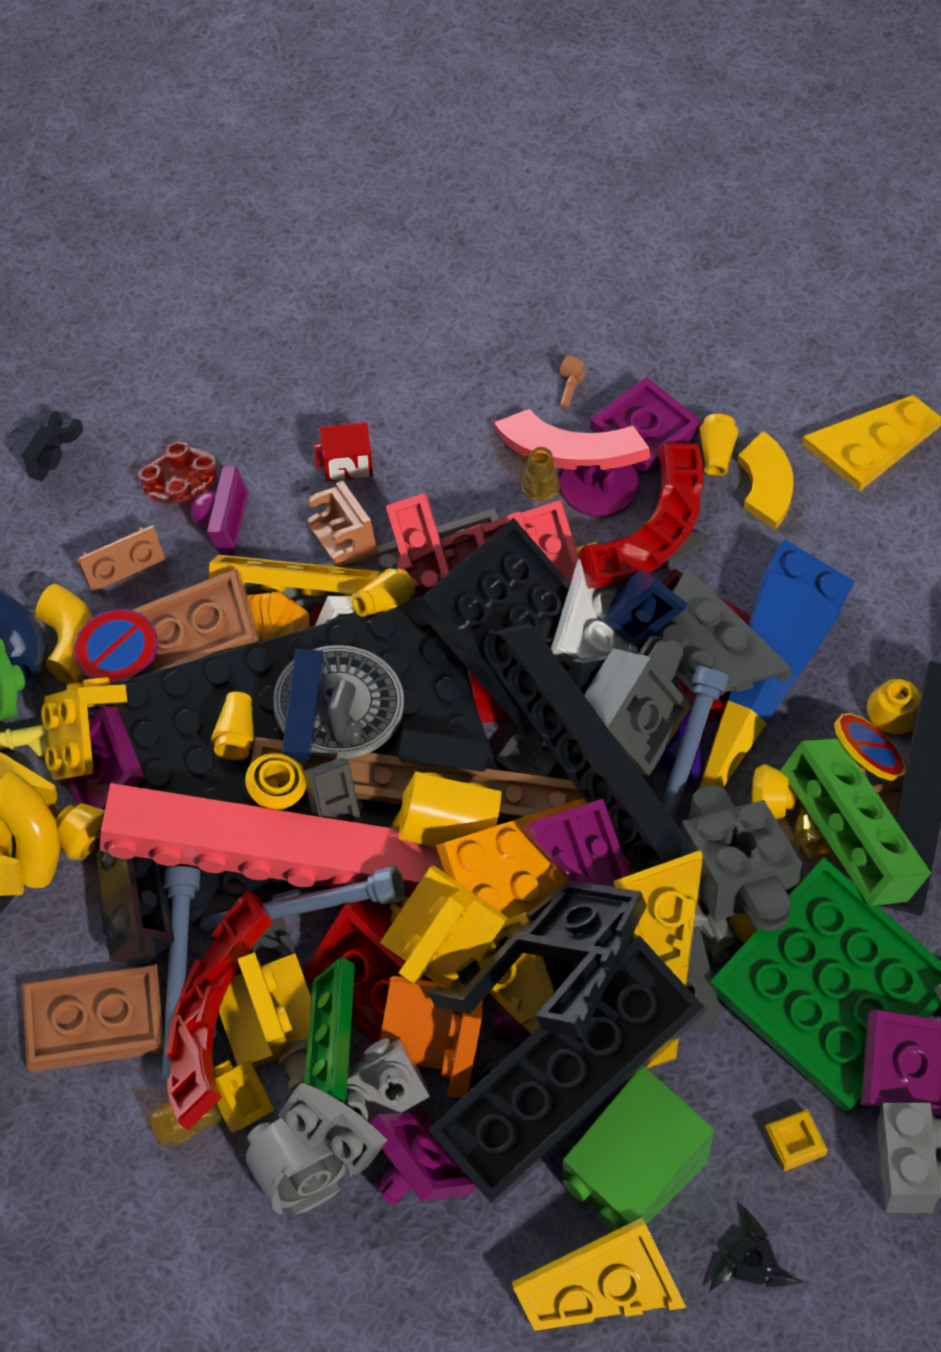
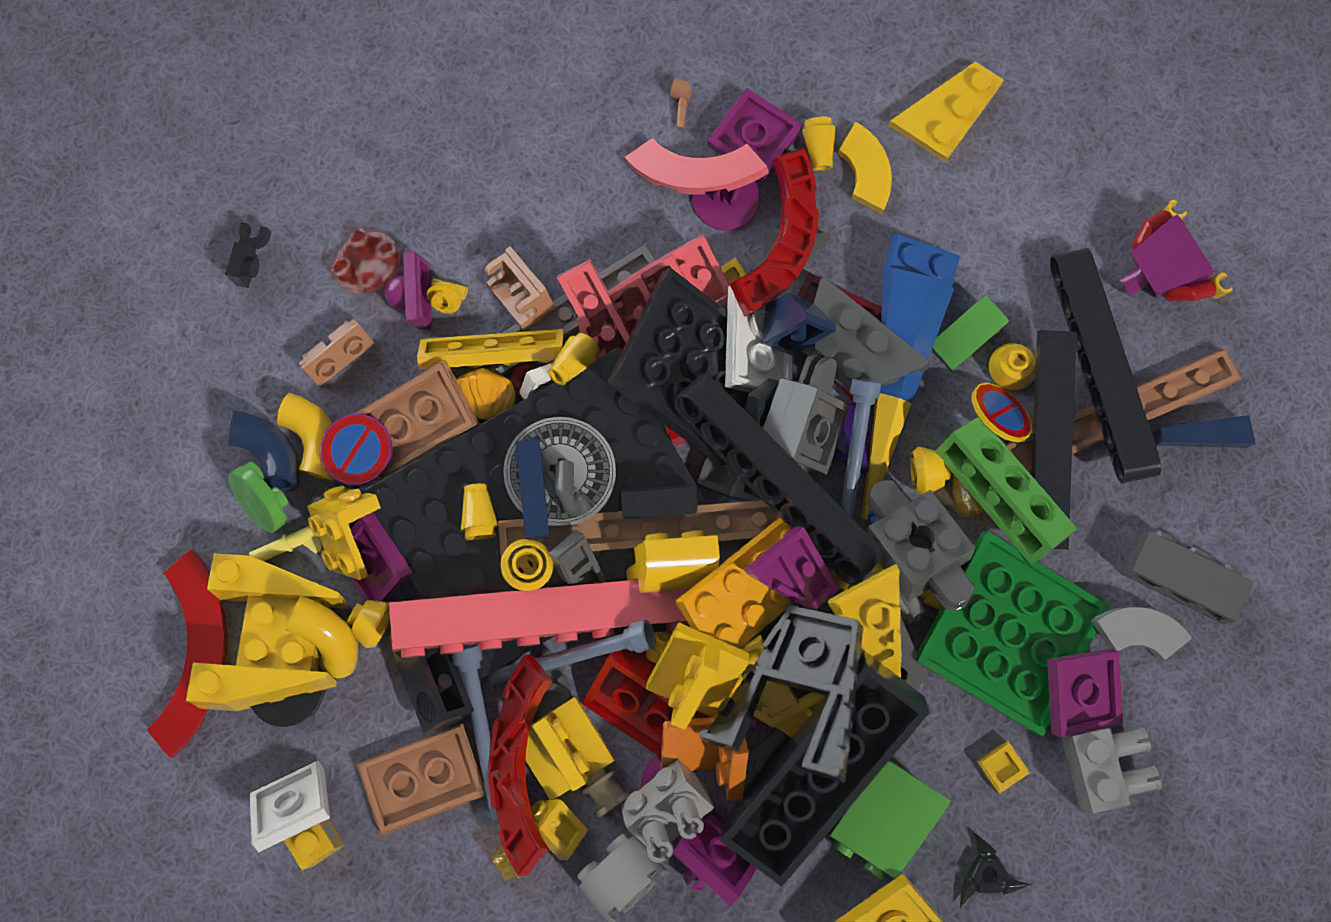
camera: 10 degrees left, 20 degrees up
(258, 523) = (446, 296): none -> yellow plate
(321, 1118) = (633, 864): light grey slope -> none
(330, 1029) = (623, 779): green tile -> none
(344, 451) = (503, 212): red brick -> none
(540, 476) = (676, 206): clear yellow cone -> none
(851, 664) = (969, 333): none -> bright green slope

